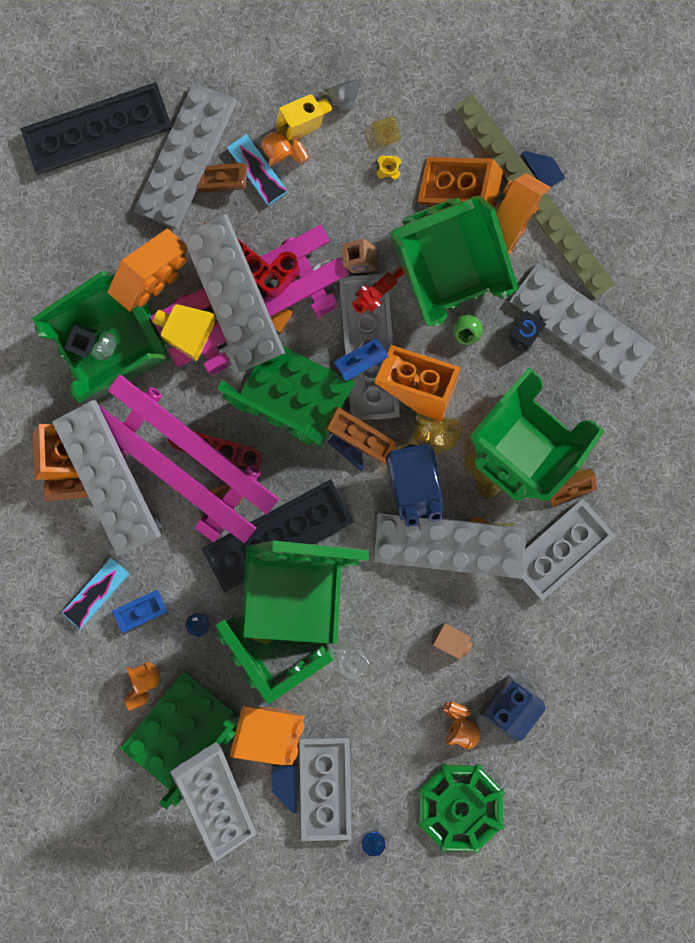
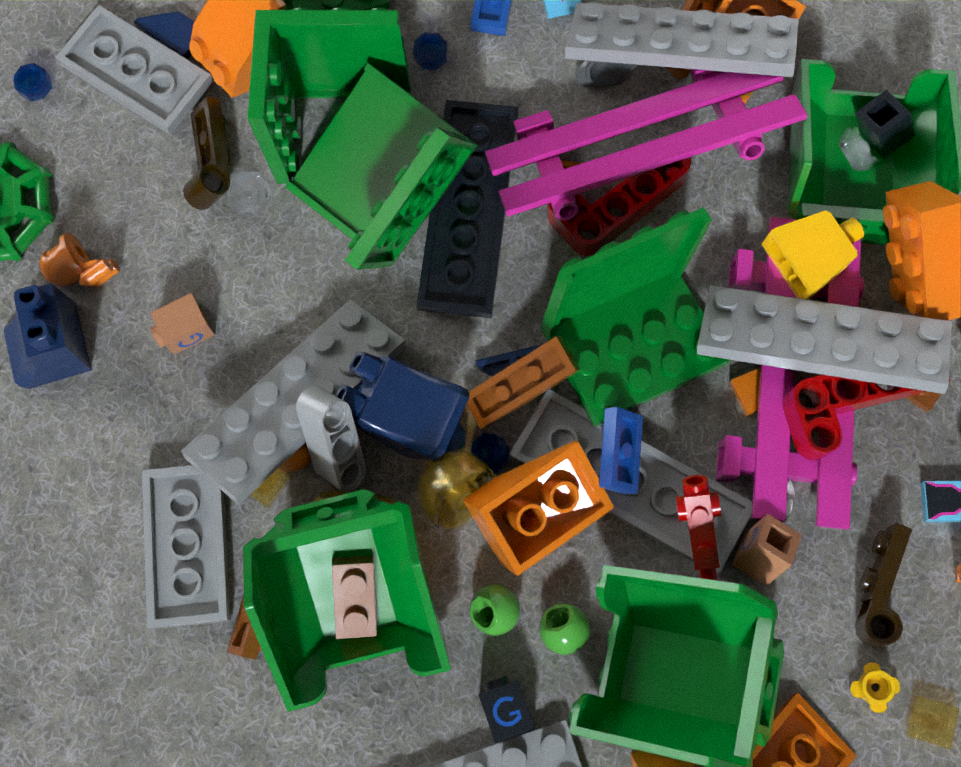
camera: 130 degrees right, 10 degrees down
(338, 194) = (878, 583): none -> dark brown plate
(346, 700) = (212, 156): none -> dark brown plate
(403, 428) = (491, 450): none -> tile
(459, 507) = (331, 438): none -> light grey beam
(482, 370) = (494, 609): none -> bright green piece
(527, 440) = (354, 597): none -> plate

